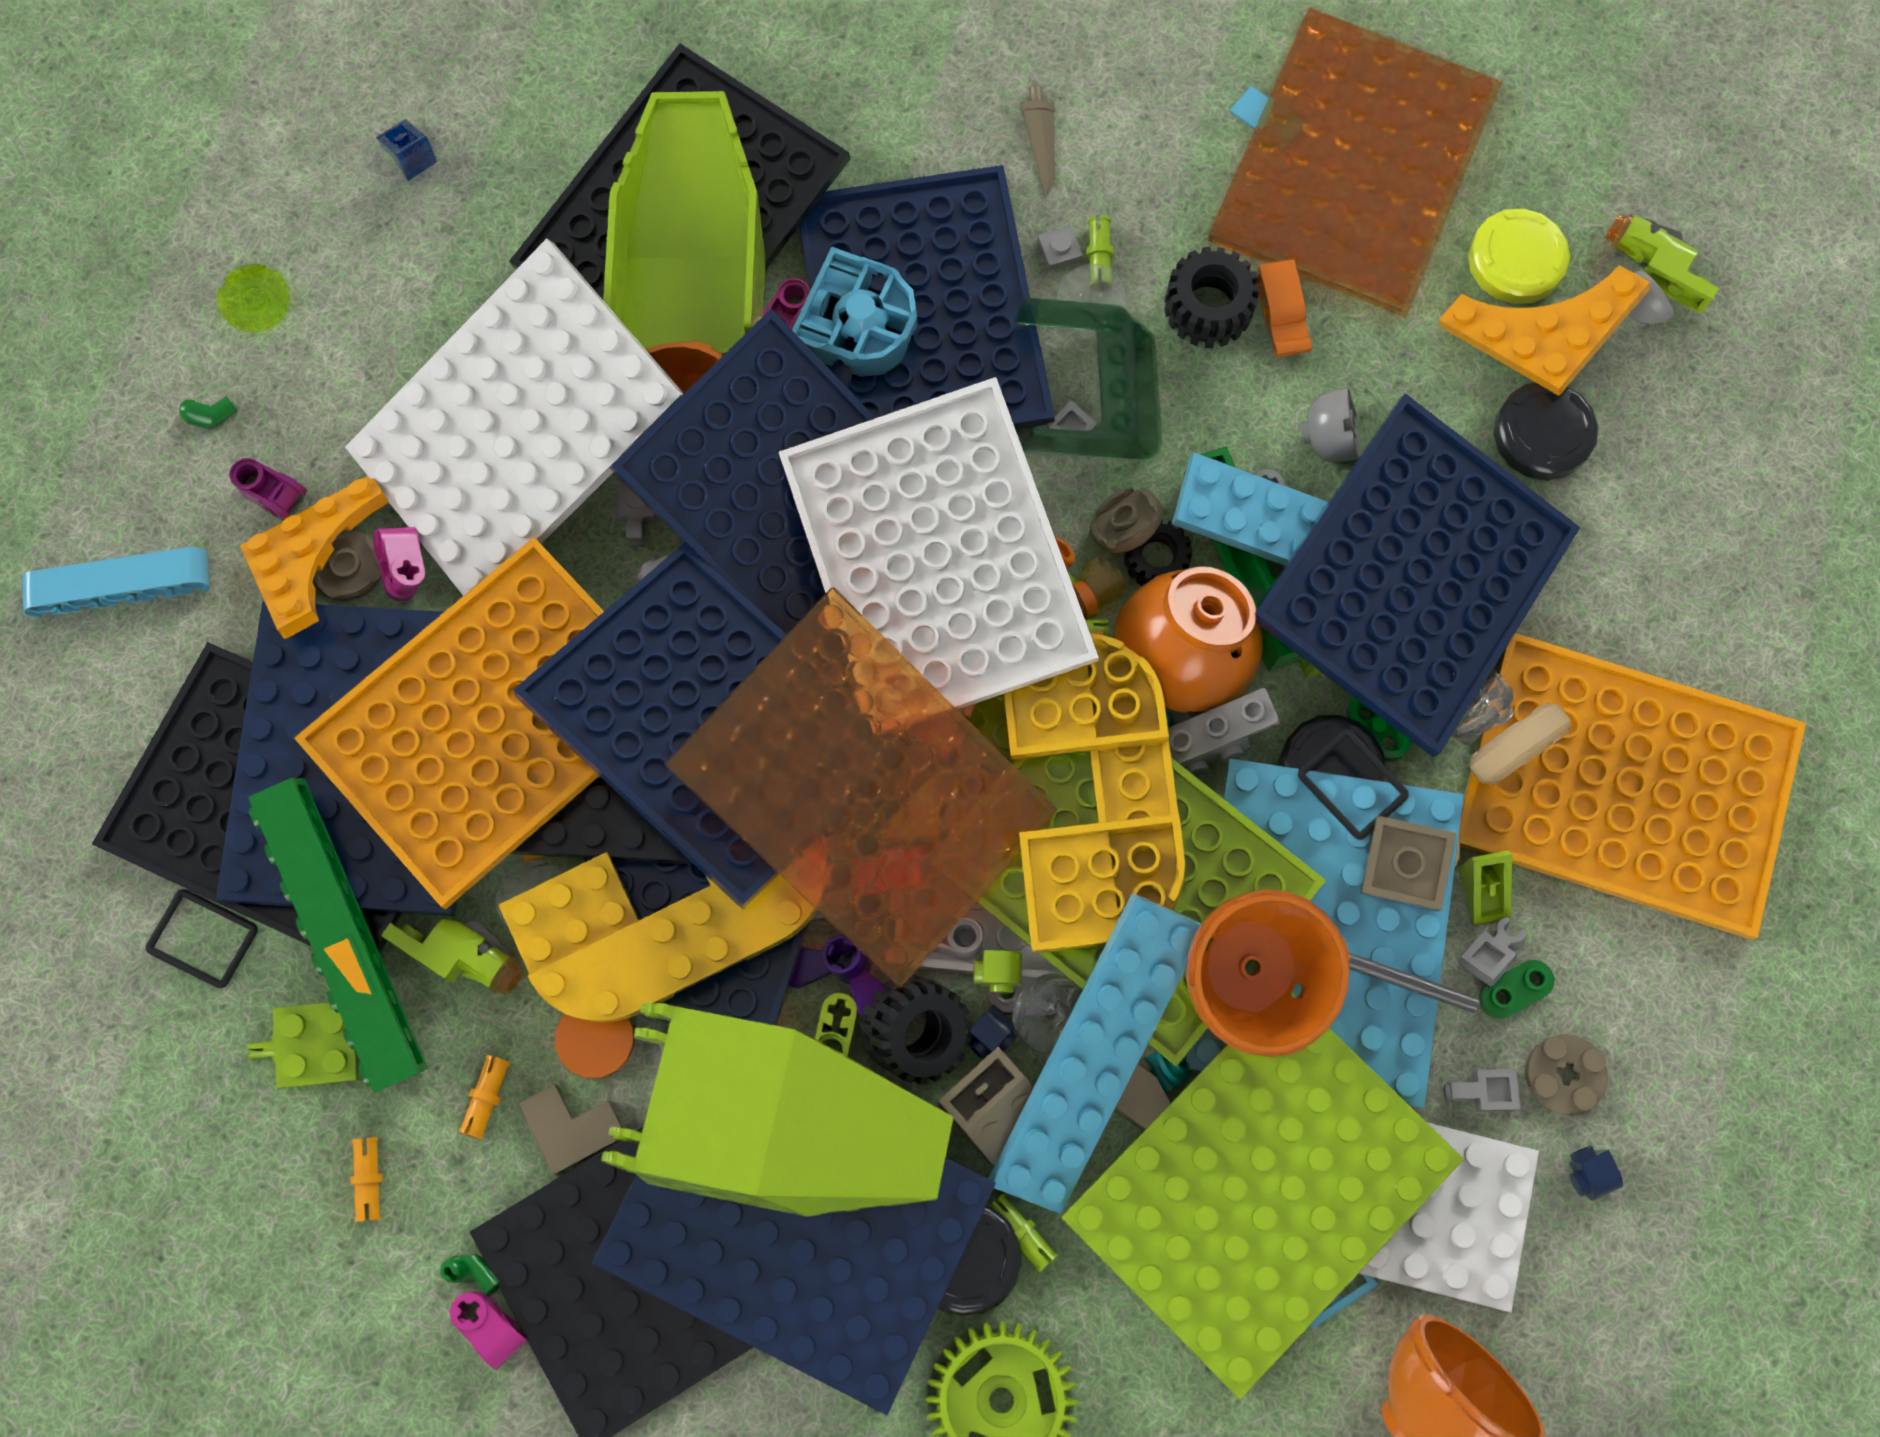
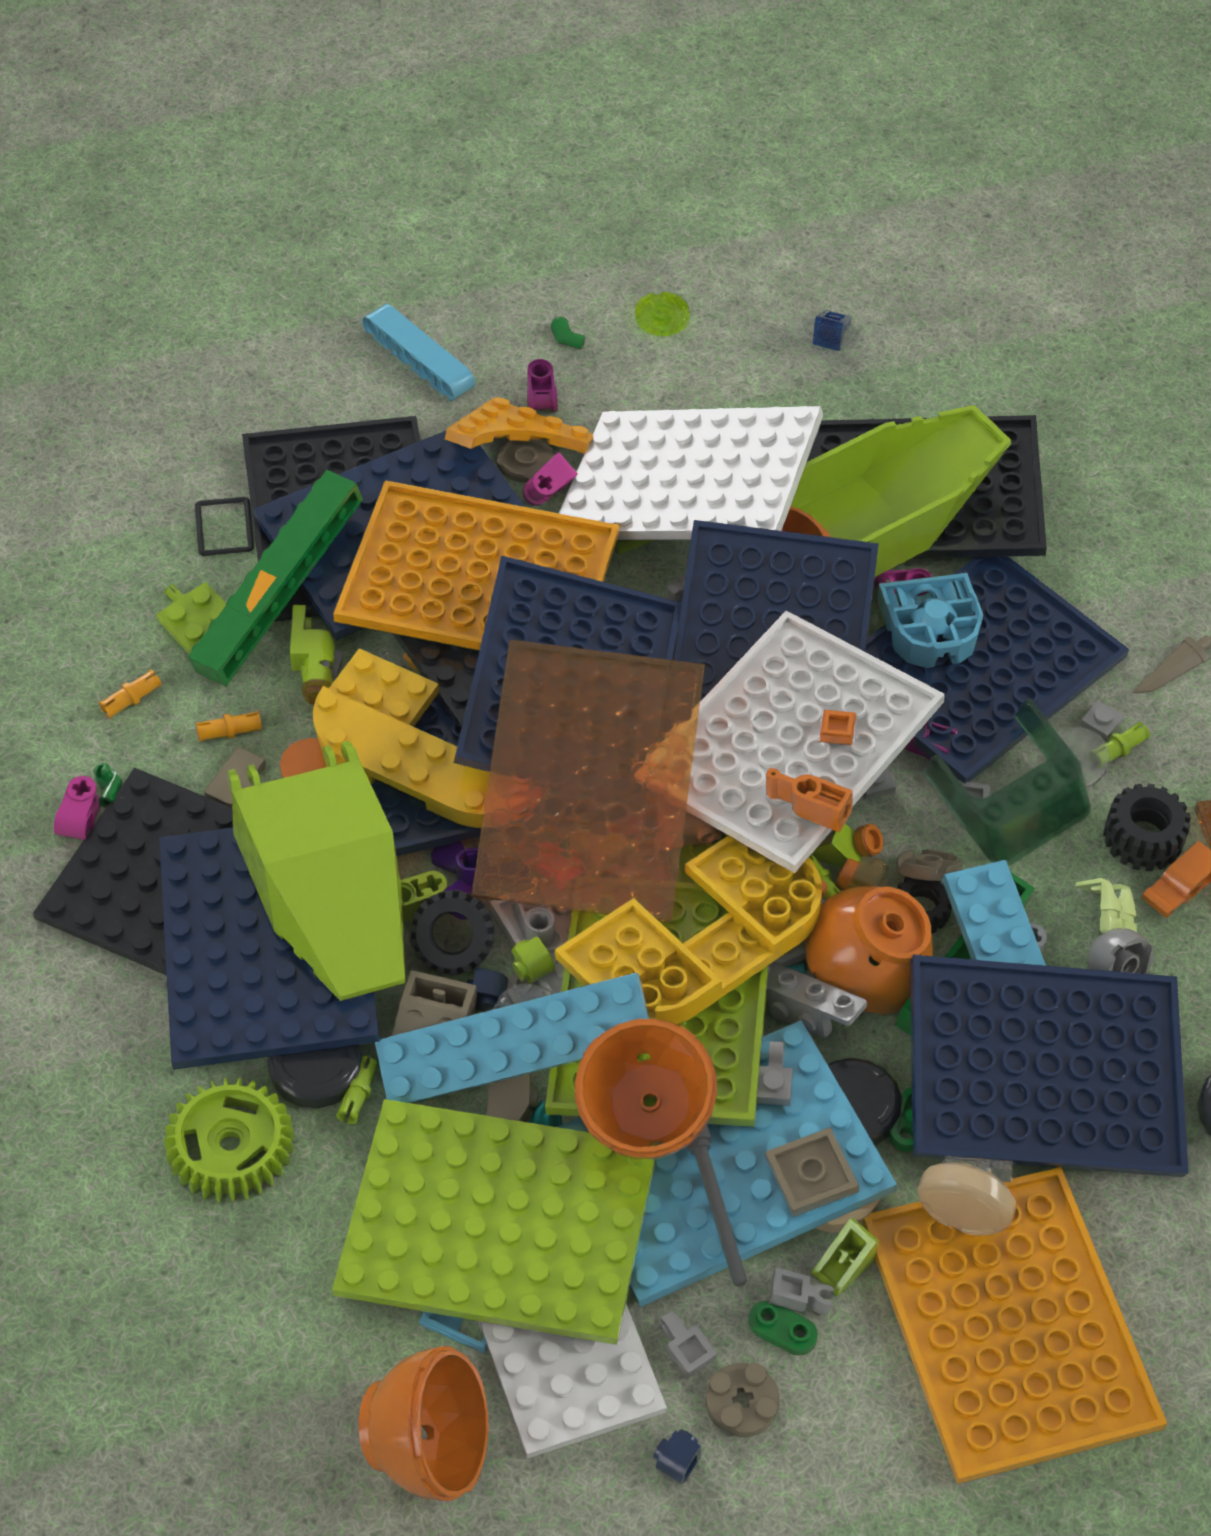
camera: 55 degrees right, 20 degrees down
(966, 503) = (838, 727): none -> orange tile
(1060, 580) = (812, 798): none -> orange piece
(1280, 384) = (1114, 911): none -> yellowish green piece
(1290, 829) = (774, 1079): none -> light grey plate
(1374, 760) = (872, 1107): black piece -> none

